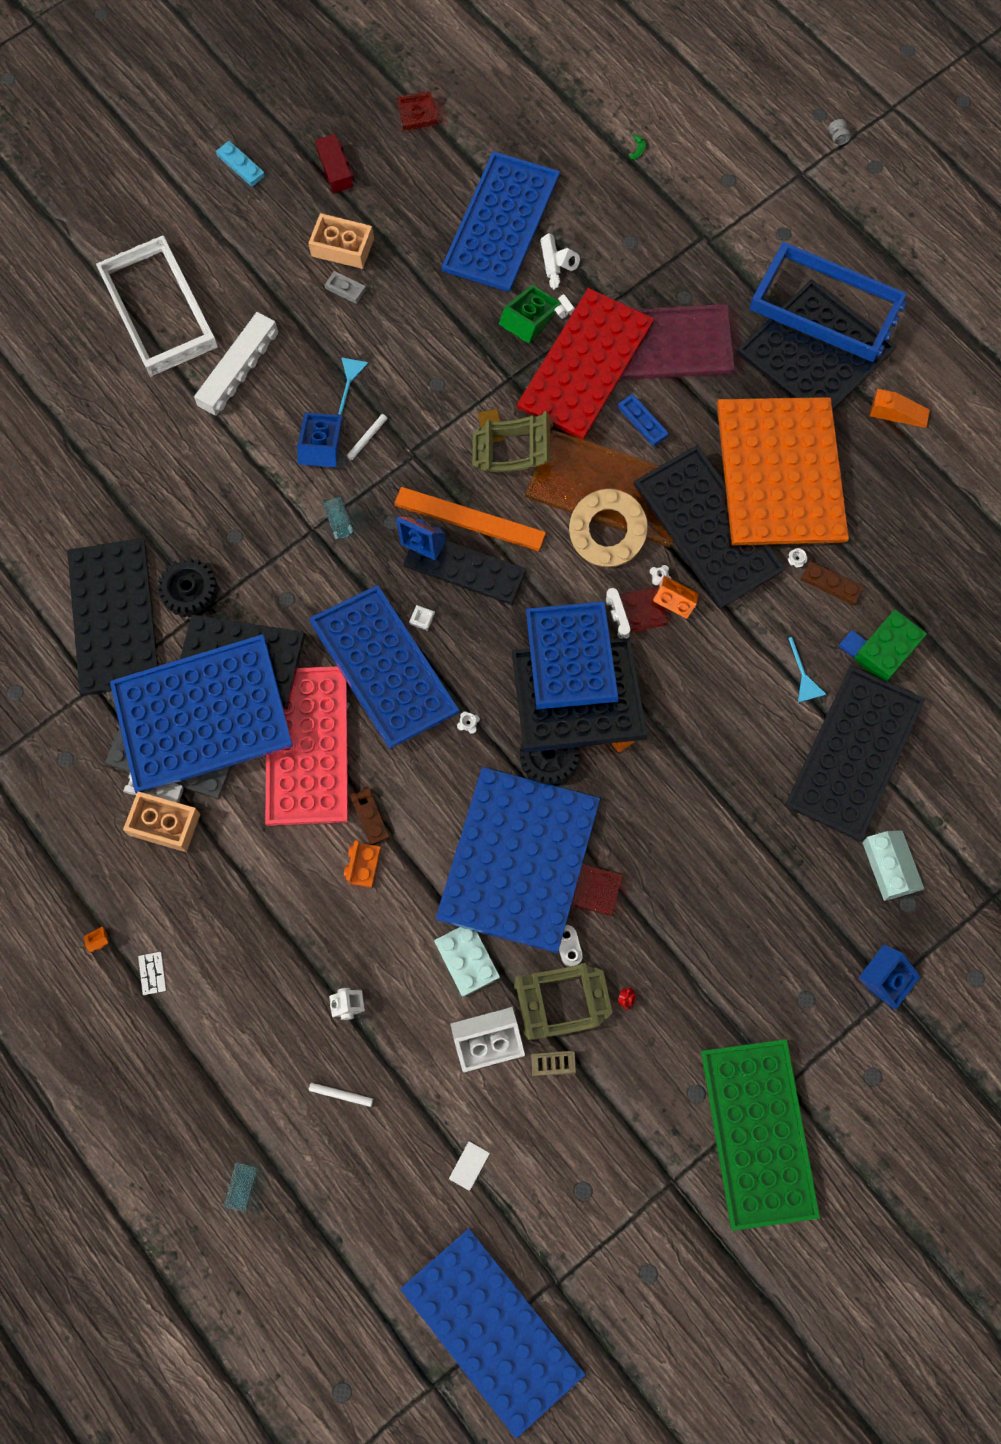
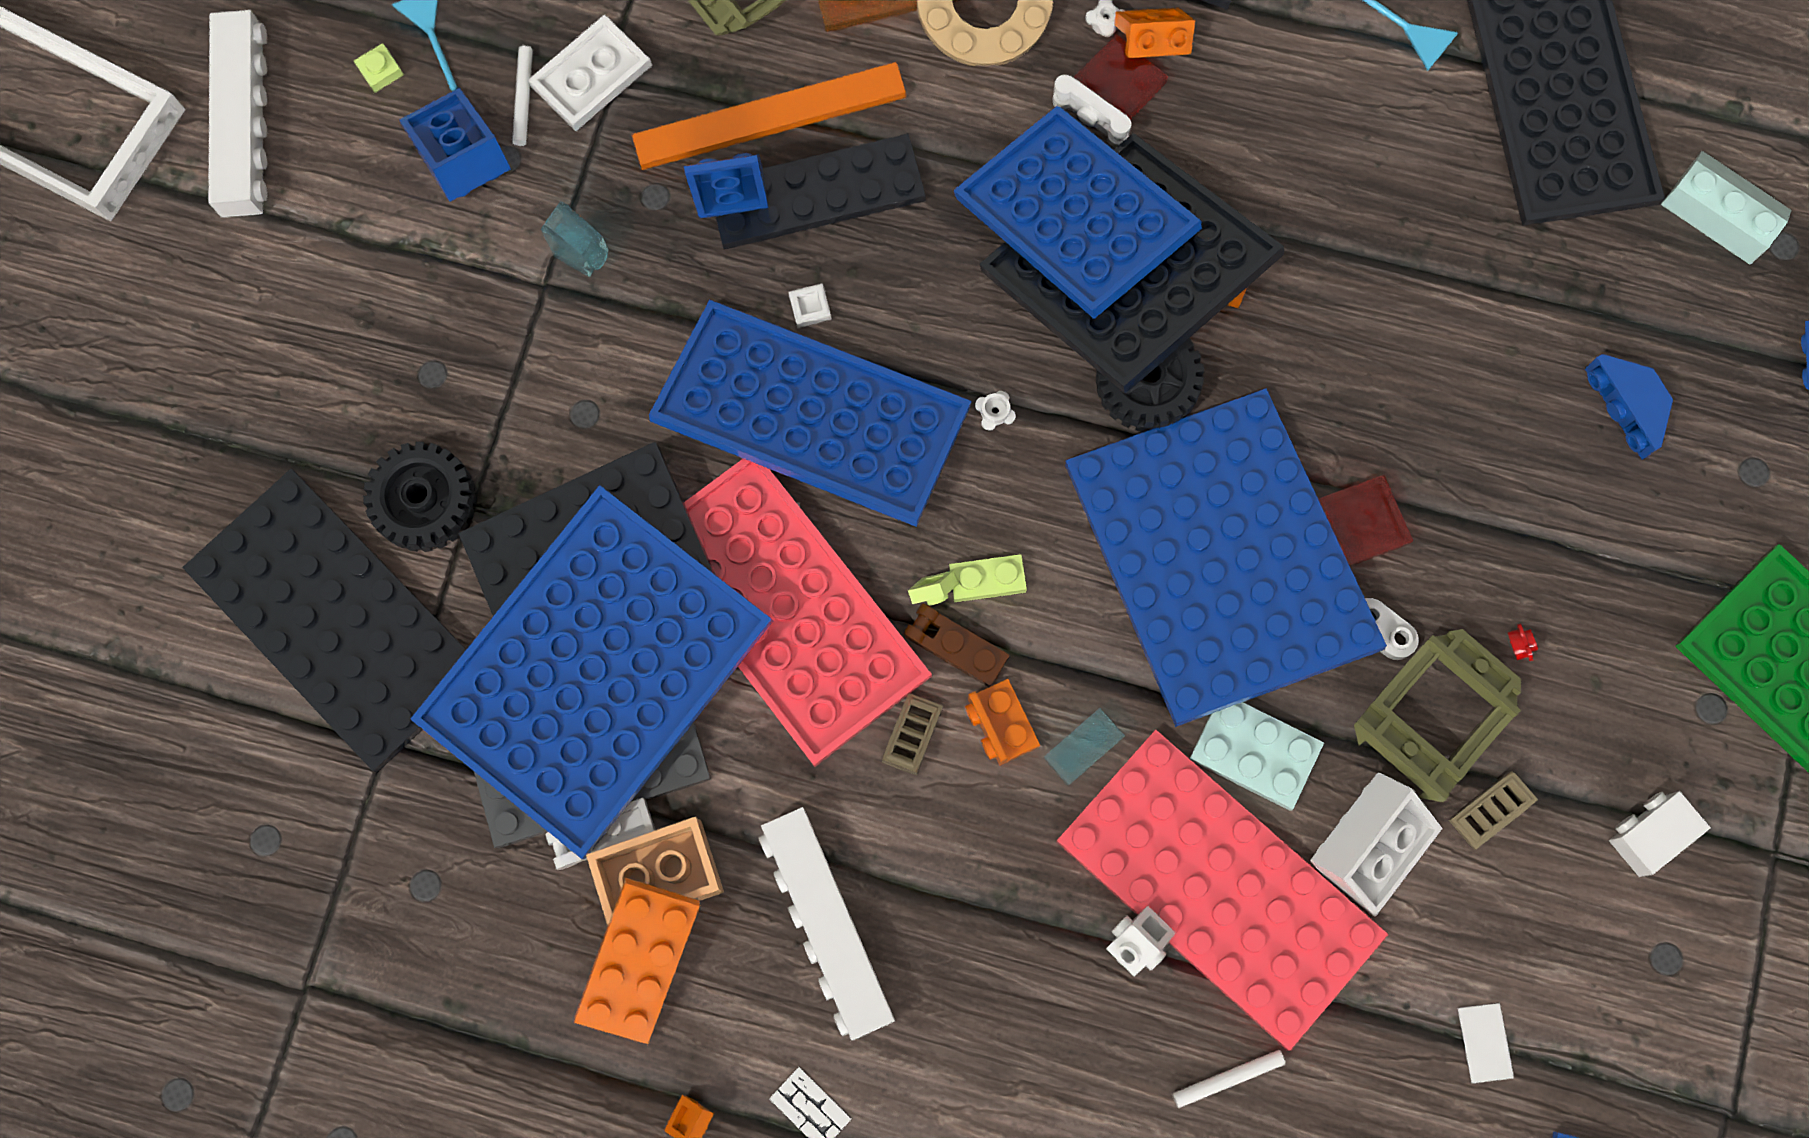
camera: 35 degrees left, 5 degrees up
(124, 853) = (636, 961): none -> orange plate
(218, 897) = (827, 923): none -> white brick
(313, 382) = (378, 68): none -> yellowish green plate
(316, 835) = (902, 762): none -> dark tan slope
(376, 782) = (933, 588): none -> yellowish green plate
(390, 901) = (1084, 747): none -> clear light blue plate
(403, 446) = (590, 72): none -> white plate
(404, 1009) = (1226, 886): none -> coral plate
(406, 796) = (988, 578): none -> yellowish green plate
(621, 1129) = (1658, 833): none -> white brick
(771, 923) = (1634, 400): none -> blue slope

